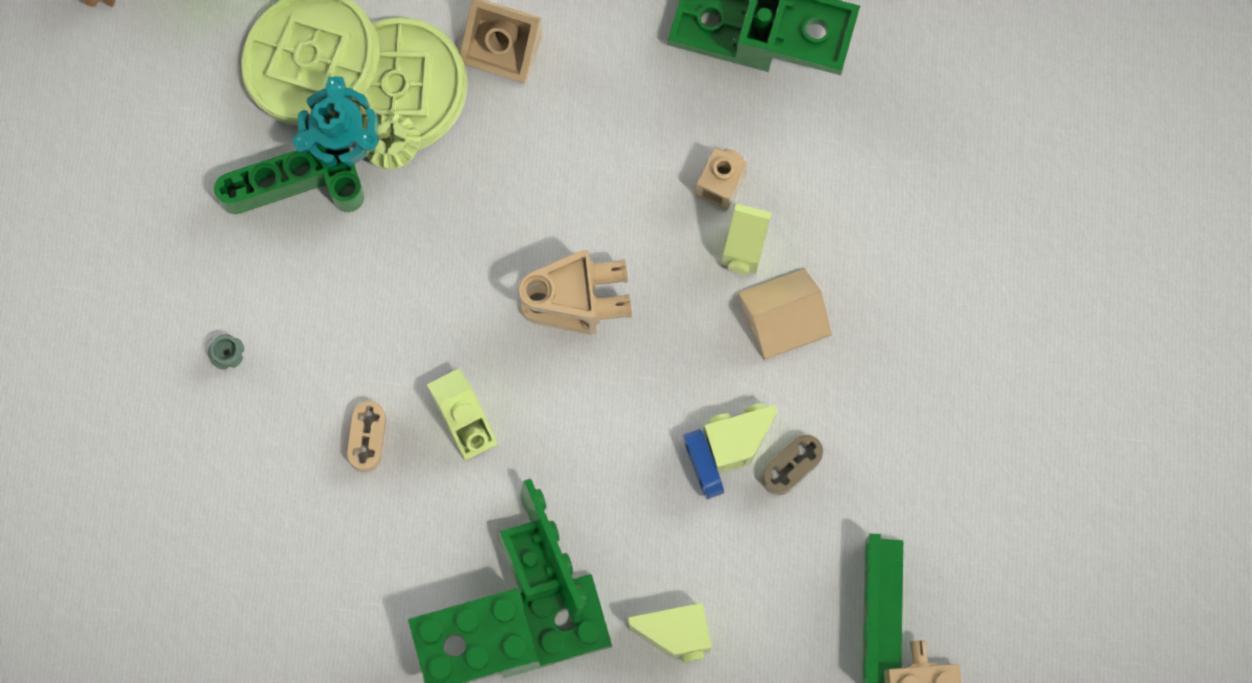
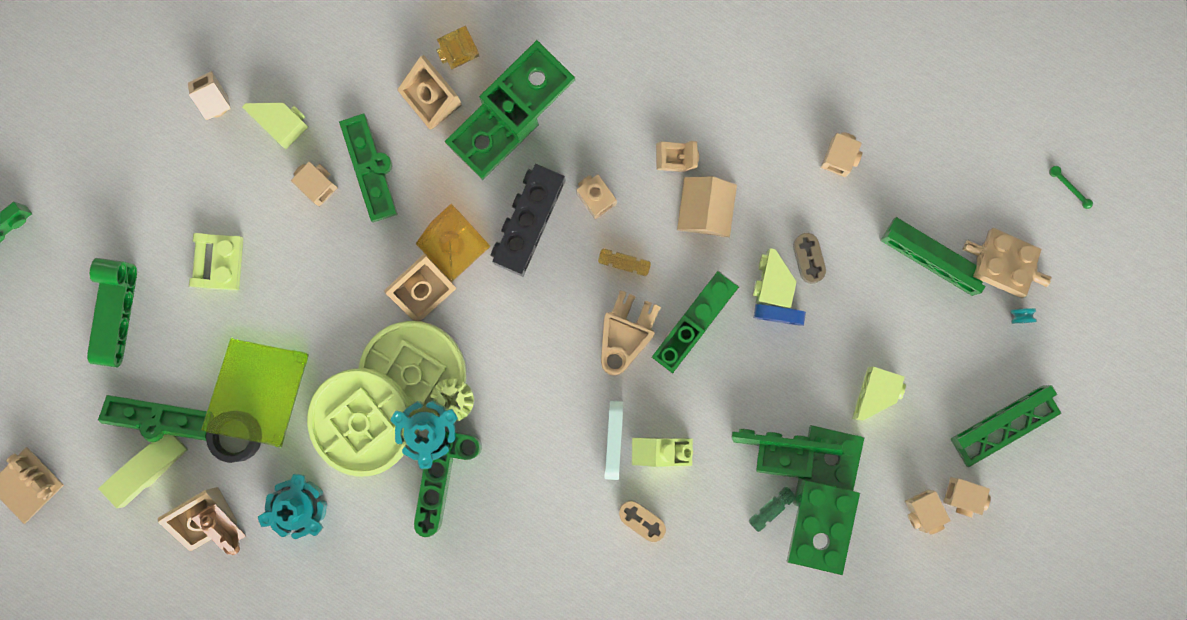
camera: 55 degrees left, 10 degrees up
(171, 39) = (295, 499): none -> teal piece
(222, 343) = (539, 589): sand green plate -> none
(445, 351) = (614, 440): none -> light aqua beam
(462, 580) = (772, 509): none -> clear green axle
(575, 48) = (452, 243): none -> clear yellow slope
(635, 131) = (519, 260): none -> black brick
(637, 369) = (695, 321): none -> green slope
(663, 252) = (624, 262): none -> clear yellow axle
(746, 239) = (649, 205): yellowish green slope -> none
(823, 243) = (677, 156): none -> tan bracket
(940, 434) = (842, 154): none -> tan brick

